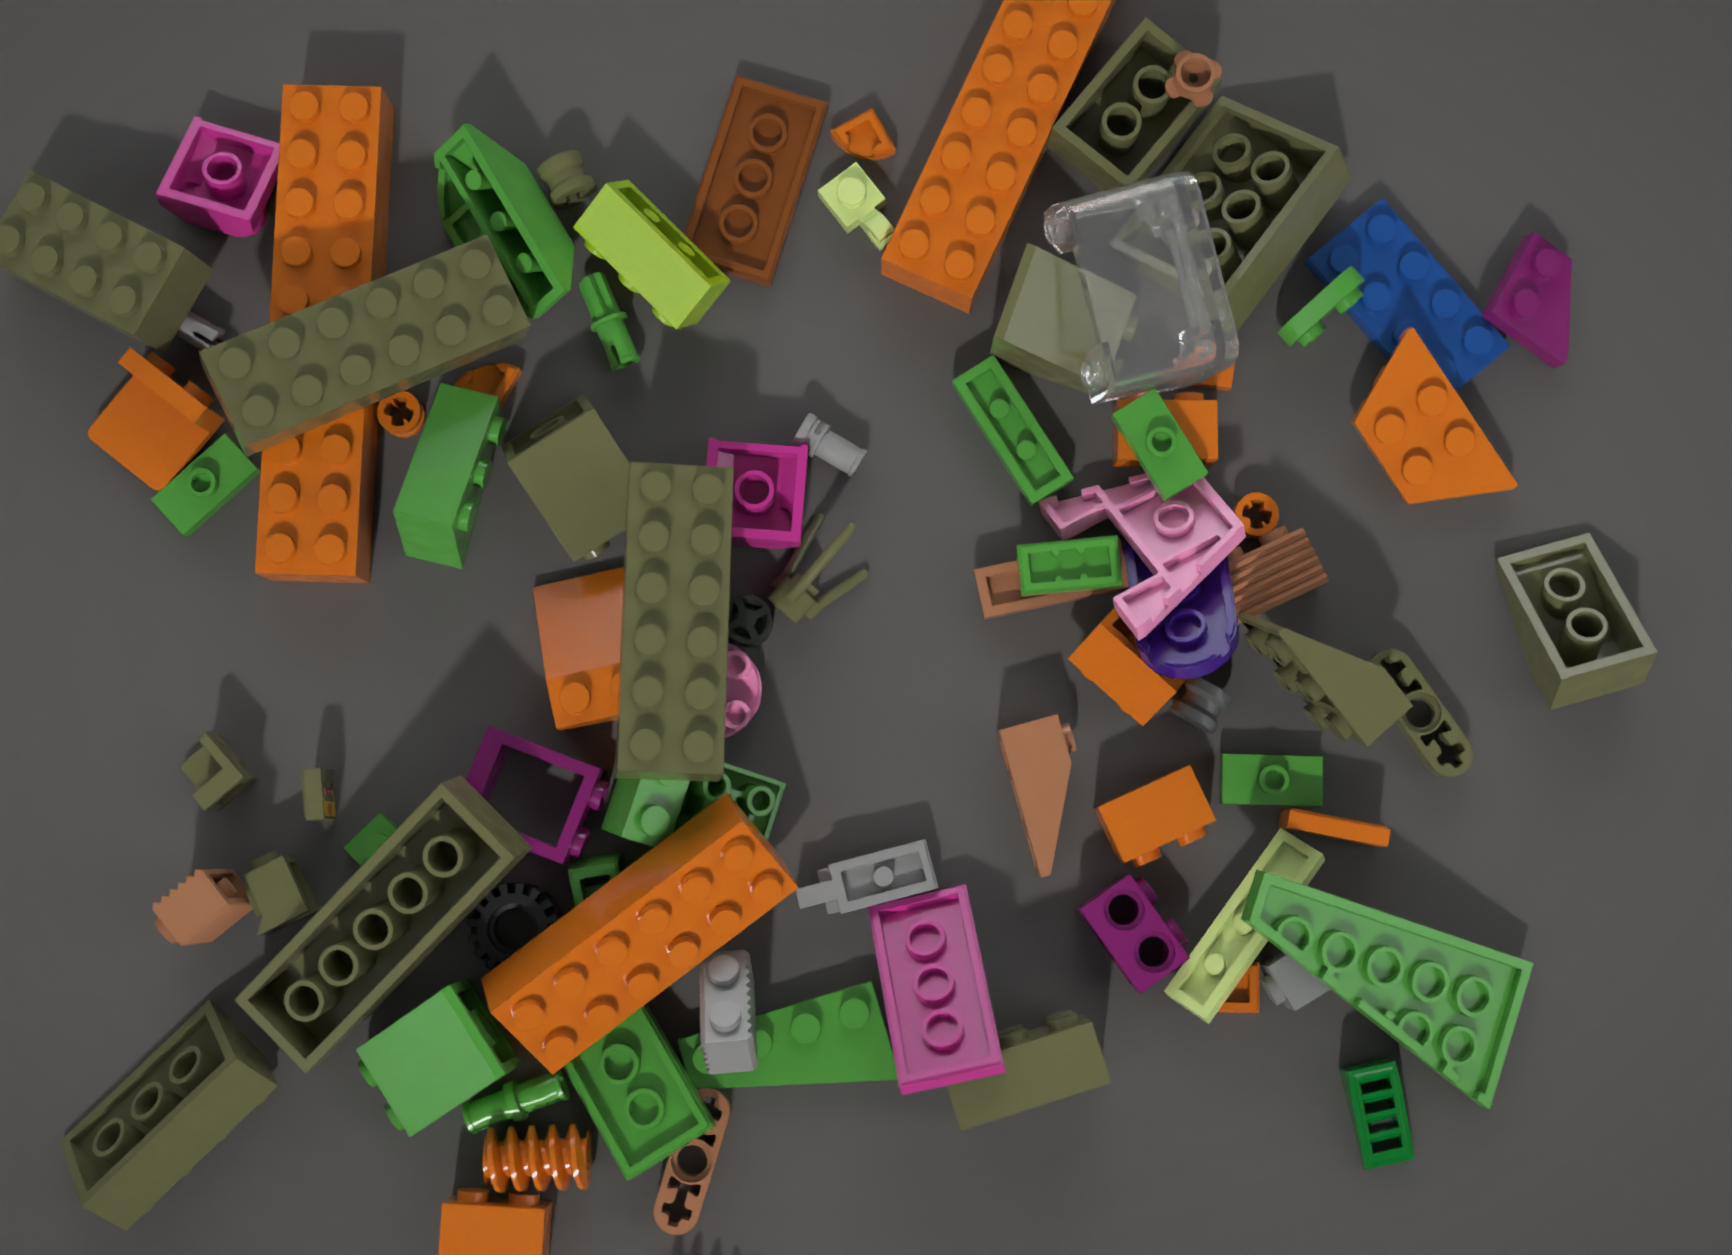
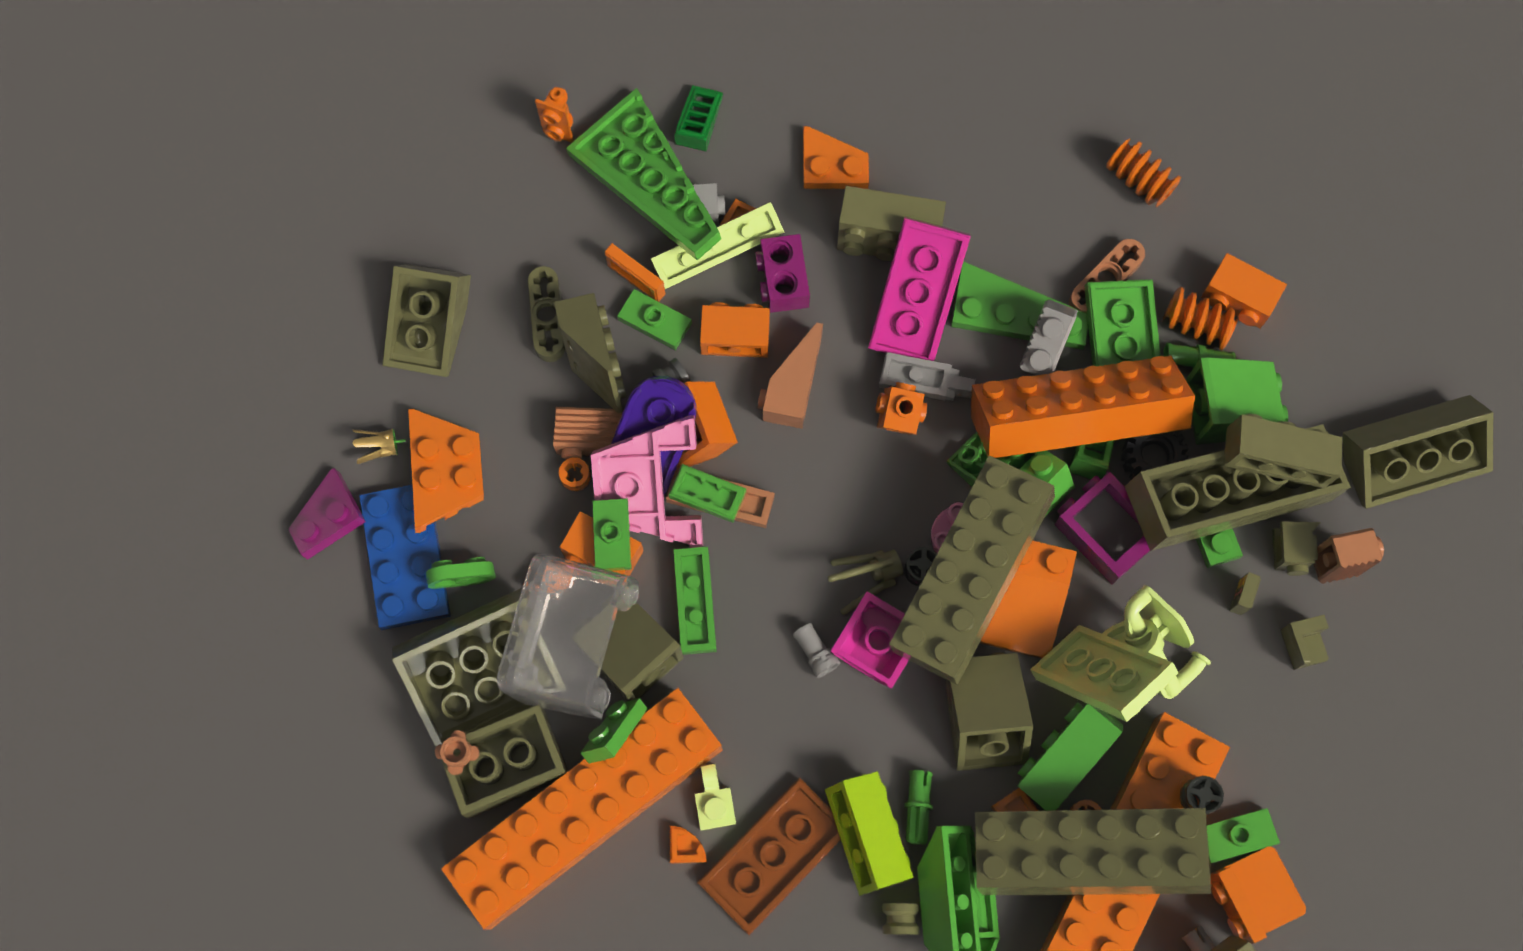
camera: 155 degrees left, 10 degrees down
(254, 475) = (1208, 793): none -> pearl dark grey wheel
(339, 992) = (1283, 451): none -> olive brick
(440, 597) = (1124, 663): none -> yellowish green plate
(877, 813) = (890, 415): none -> orange brick
(1019, 203) = (614, 730): none -> bright green plate
(1155, 1140) = (832, 163): none -> orange wing
(1529, 421) = (384, 439): none -> pearl gold piece
(1574, 999) = (555, 115): none -> orange hinge

